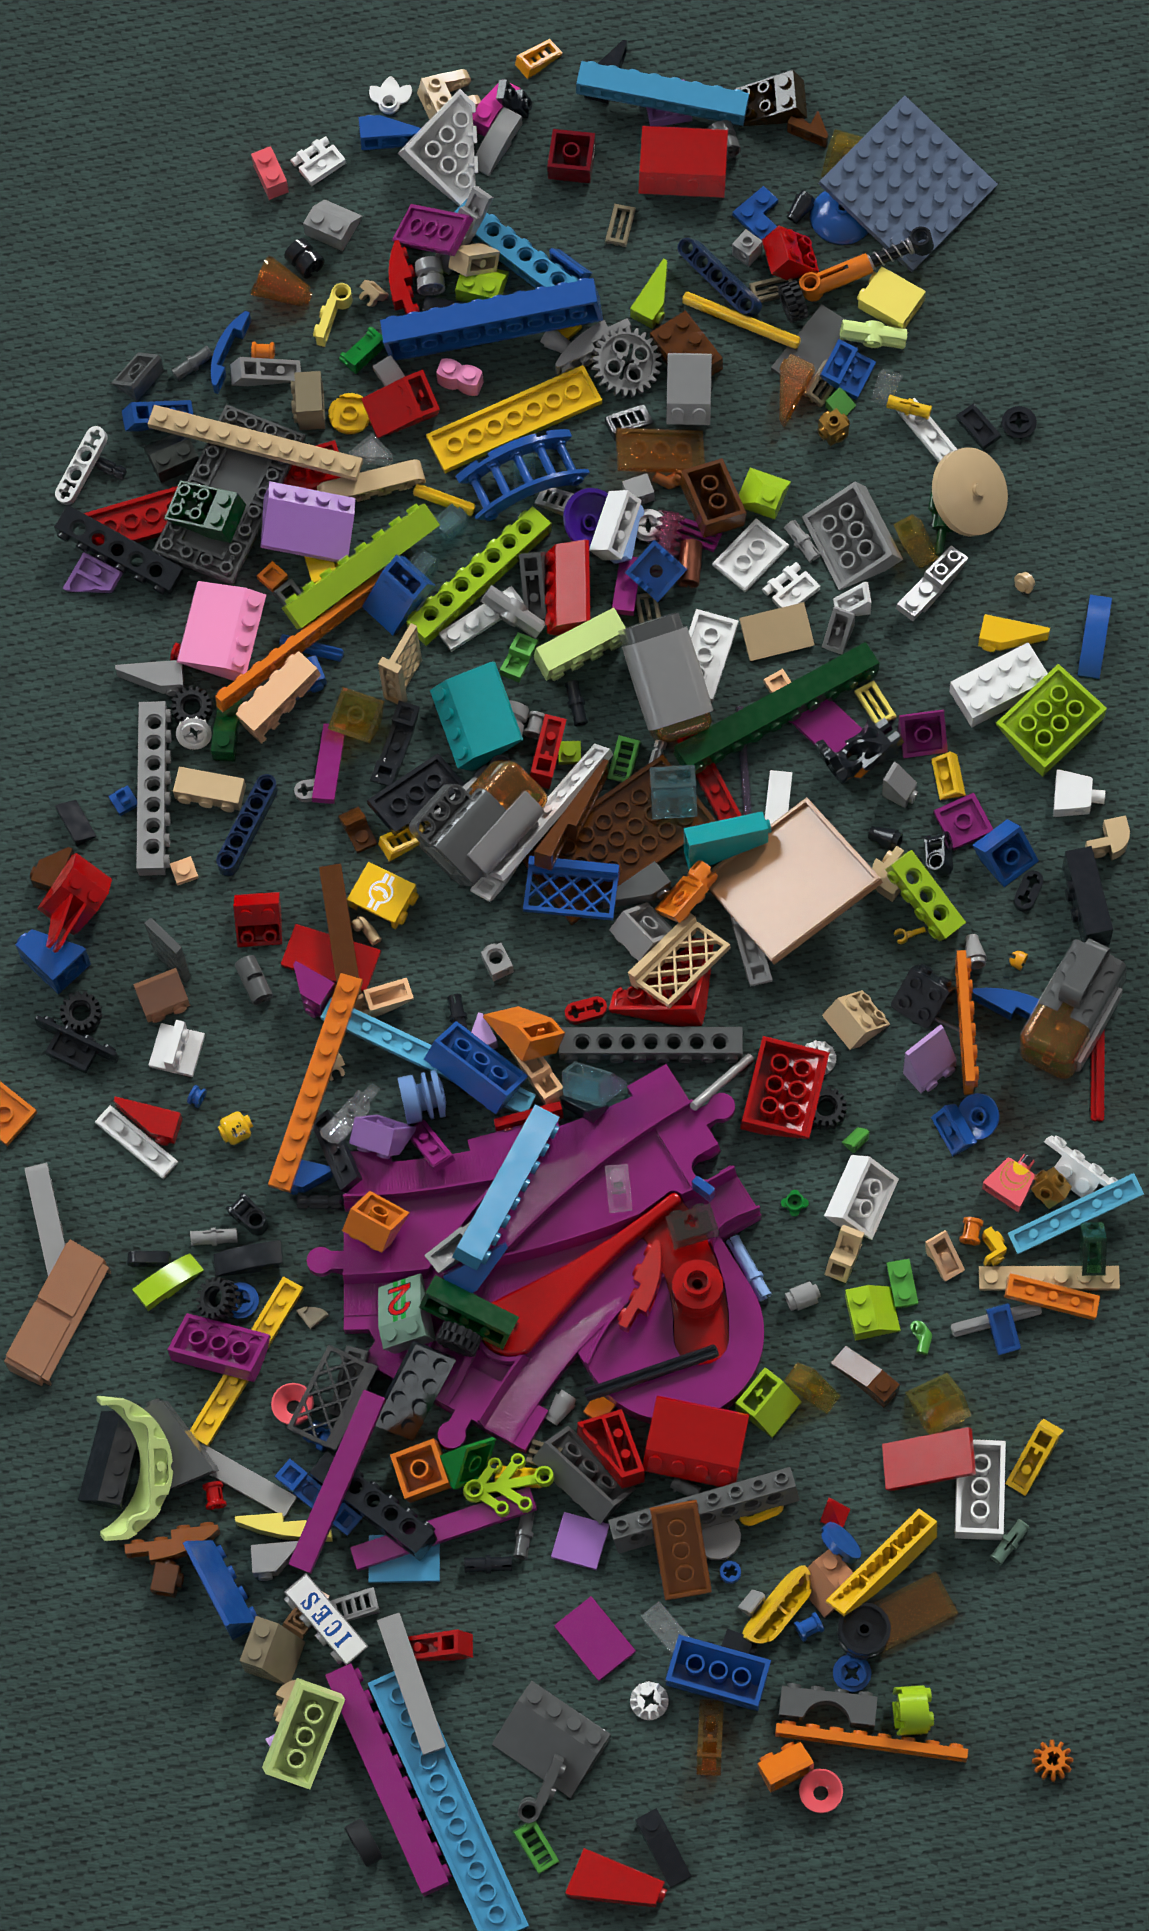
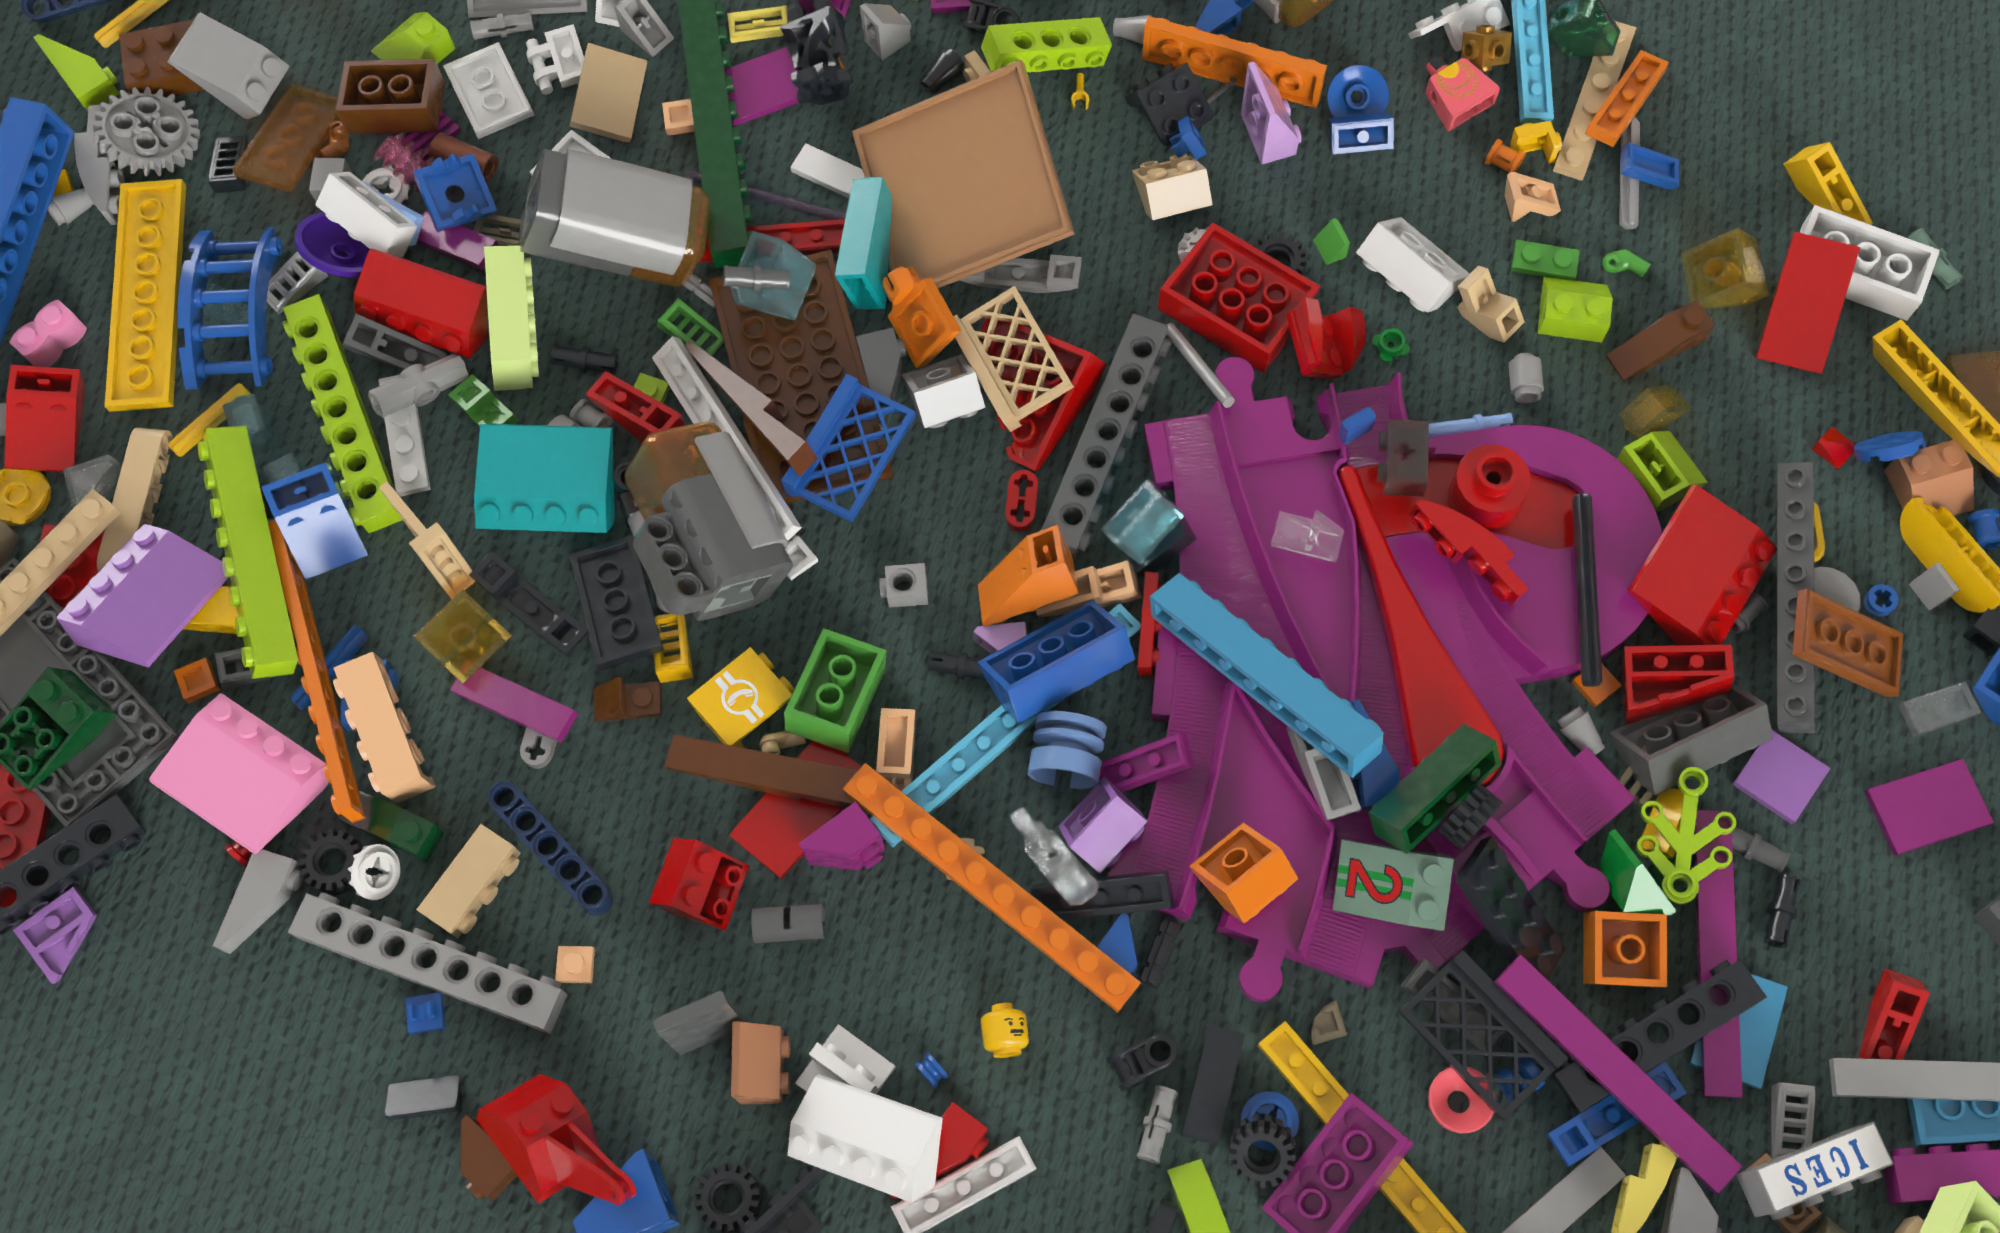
camera: 70 degrees left, 0 degrees up
(138, 1070) = (866, 1138): none -> white slope
(407, 946) = (835, 690): none -> bright green brick
(657, 780) = (756, 278): none -> dark grey pin
(772, 1156) = (1326, 343): none -> red piece
(896, 1017) = (1188, 139): none -> blue tile

